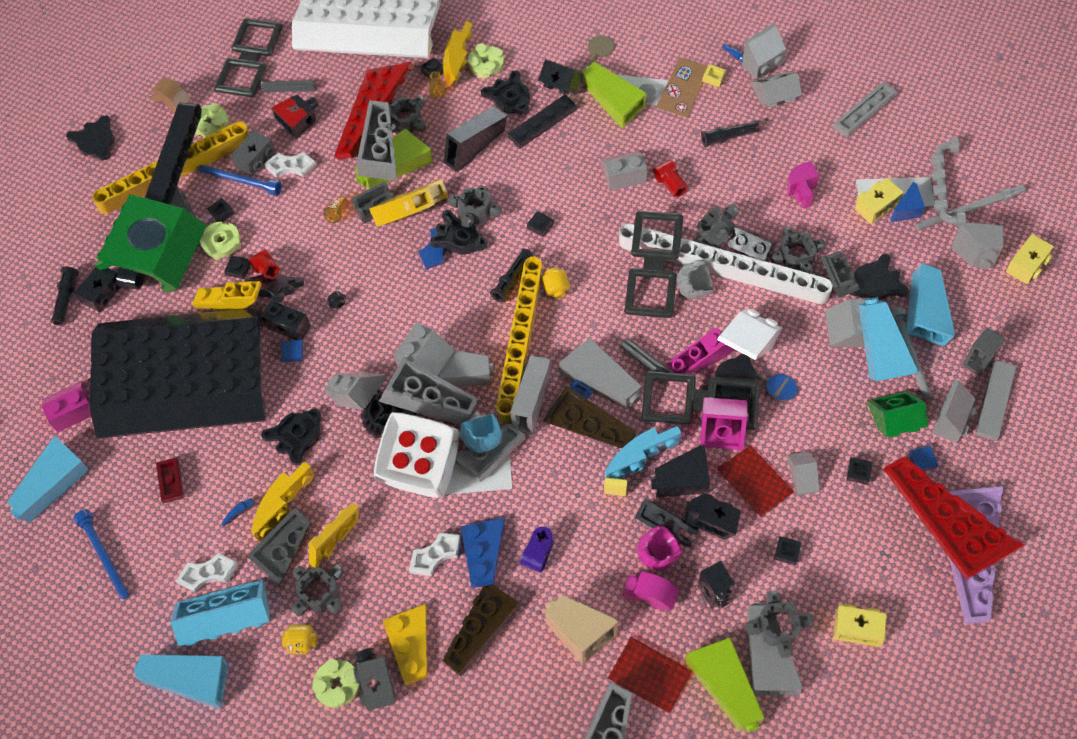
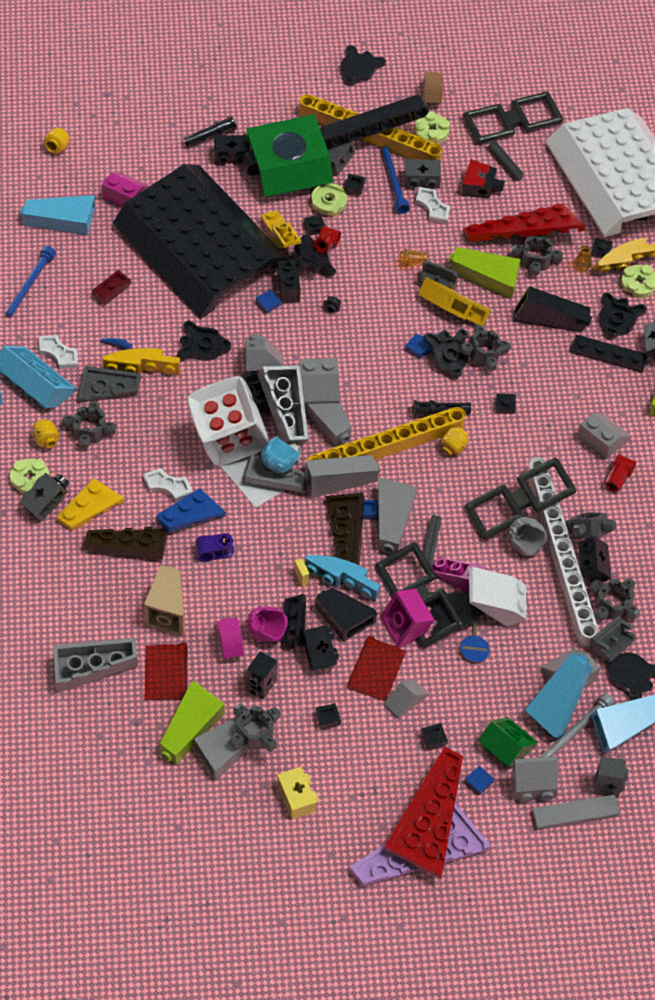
camera: 50 degrees right, 5 degrees down
(324, 543) = (130, 407): yellow wing -> none
(376, 147) = (485, 245): light grey wedge -> none

